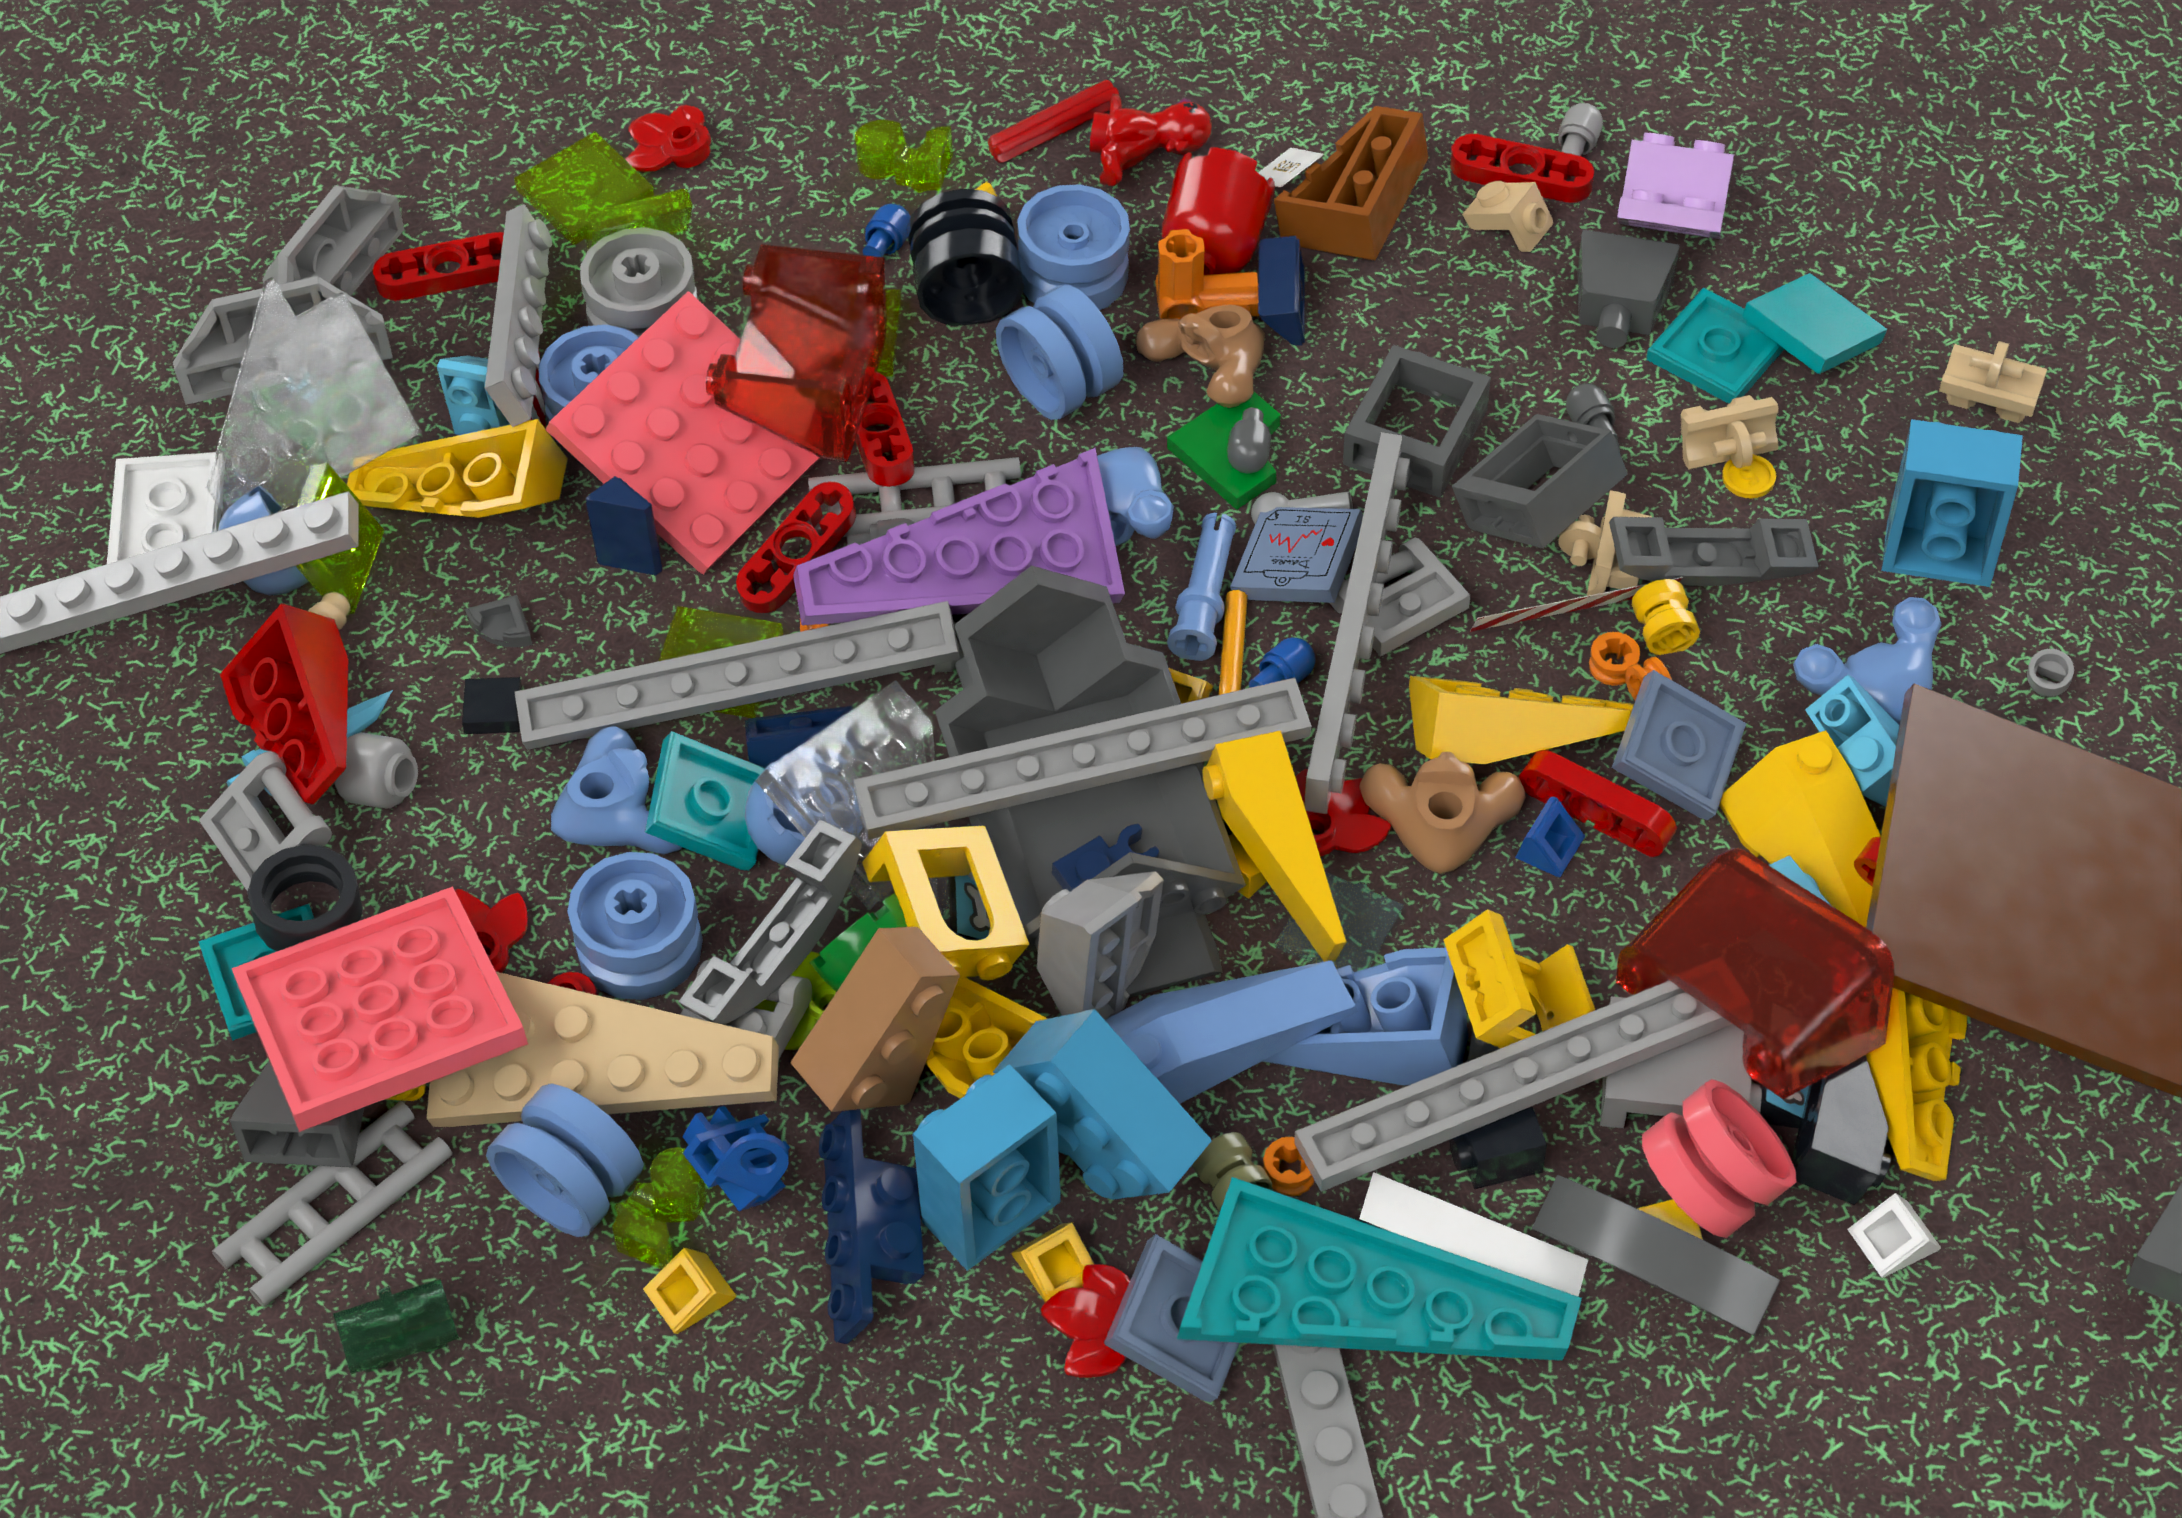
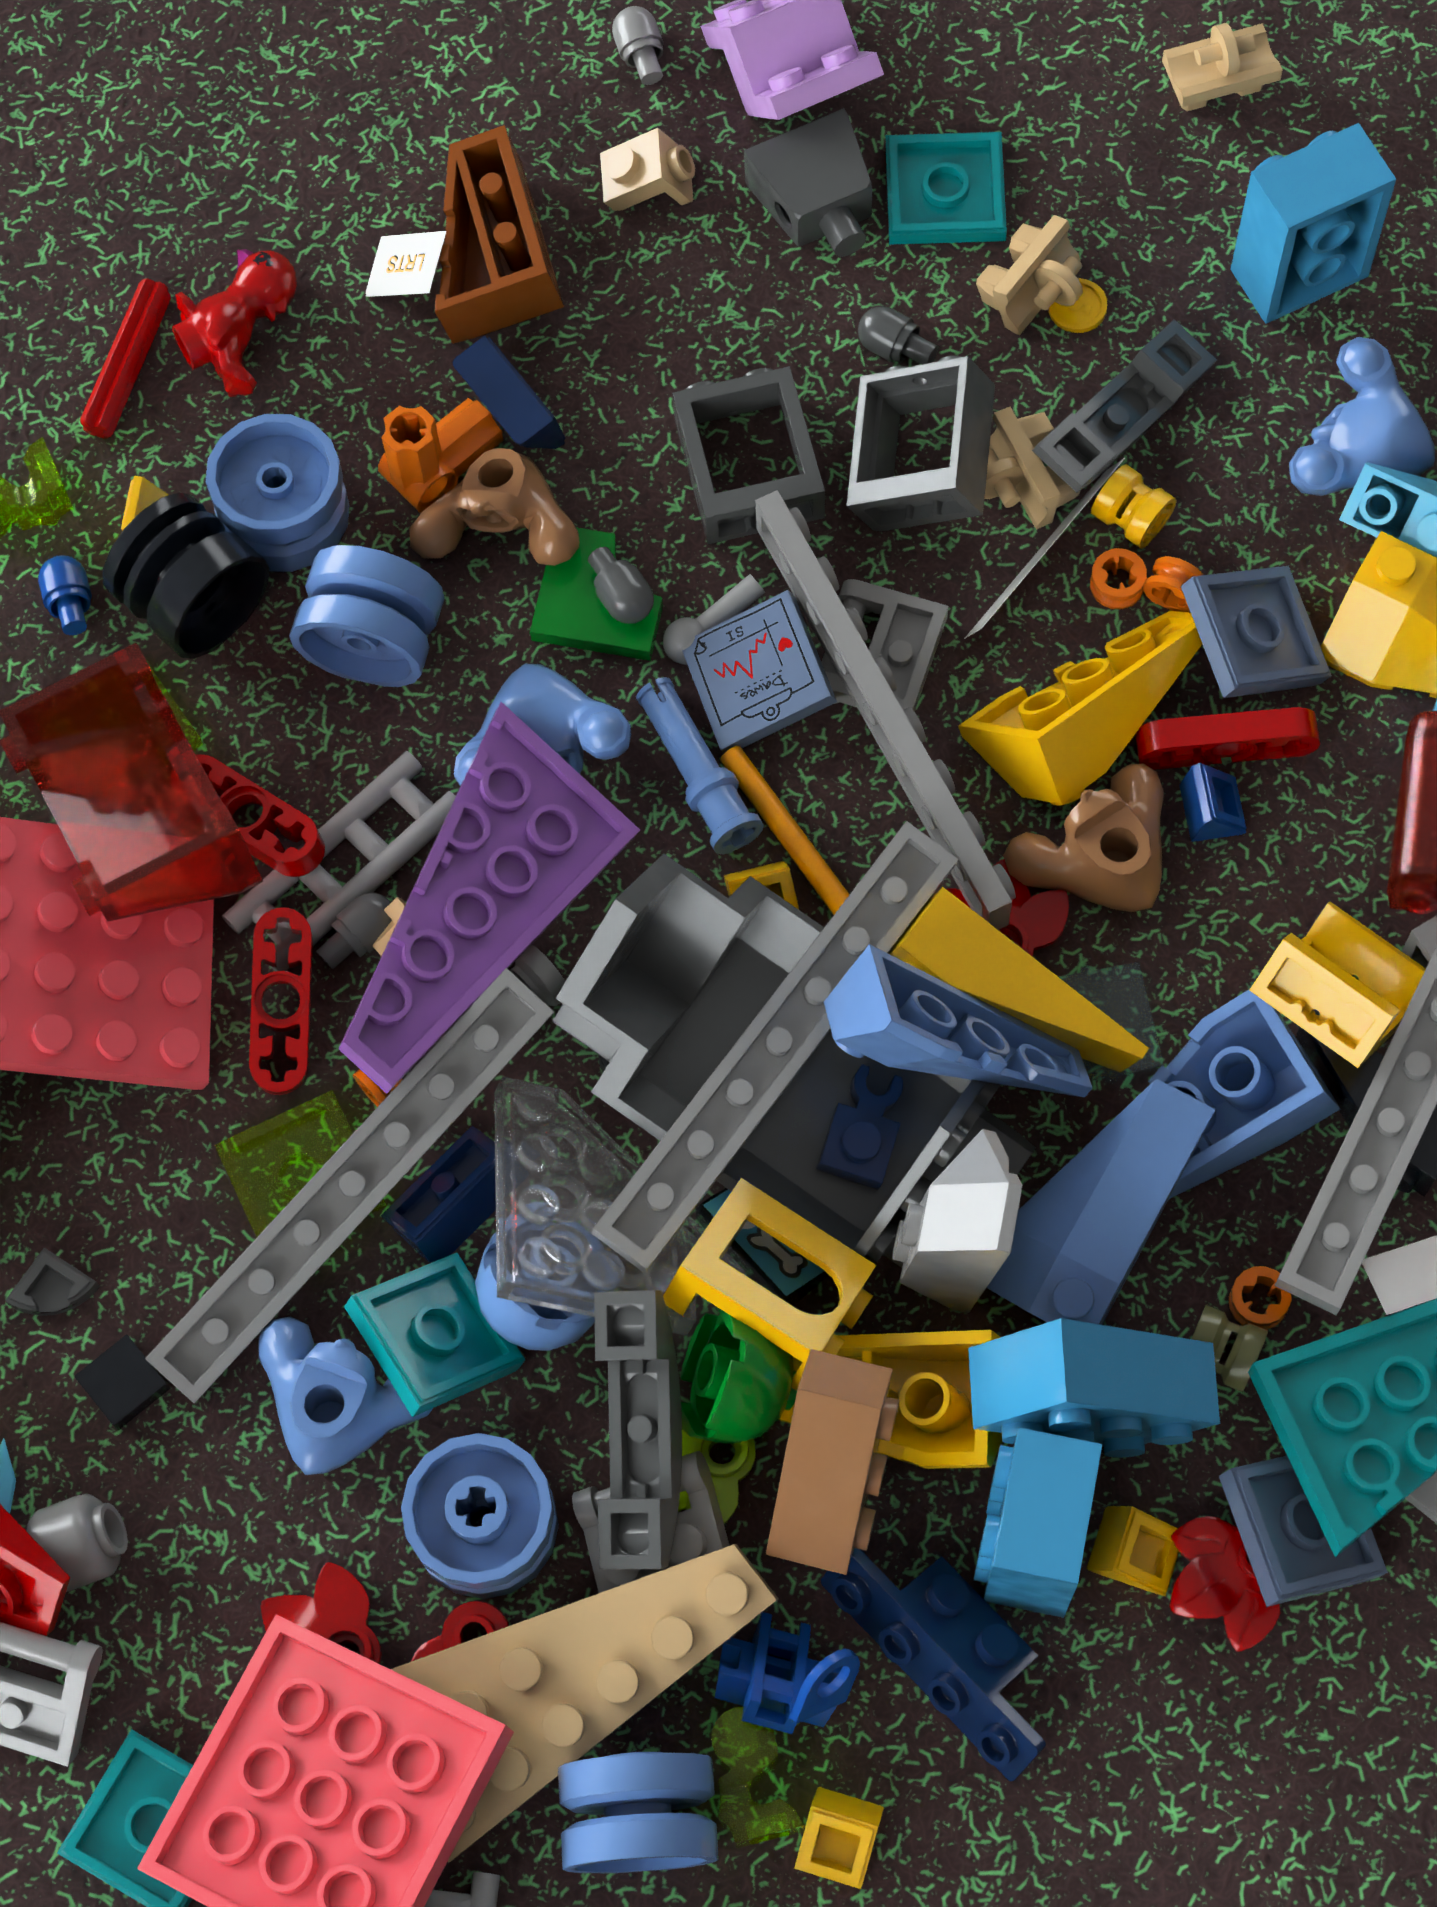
camera: 35 degrees left, 15 degrees up
(294, 867) = (97, 1704): black tyre -> none
(623, 528) = (105, 1106): dark blue slope -> none
(1193, 809) = (933, 1028): none -> medium blue wedge
(1223, 203) = (384, 357): red cylinder -> none
(1285, 661) = (837, 798): blue cylinder -> none
(1510, 153) = (625, 95): red beam -> none
(1814, 323) = (1016, 108): teal tile -> none

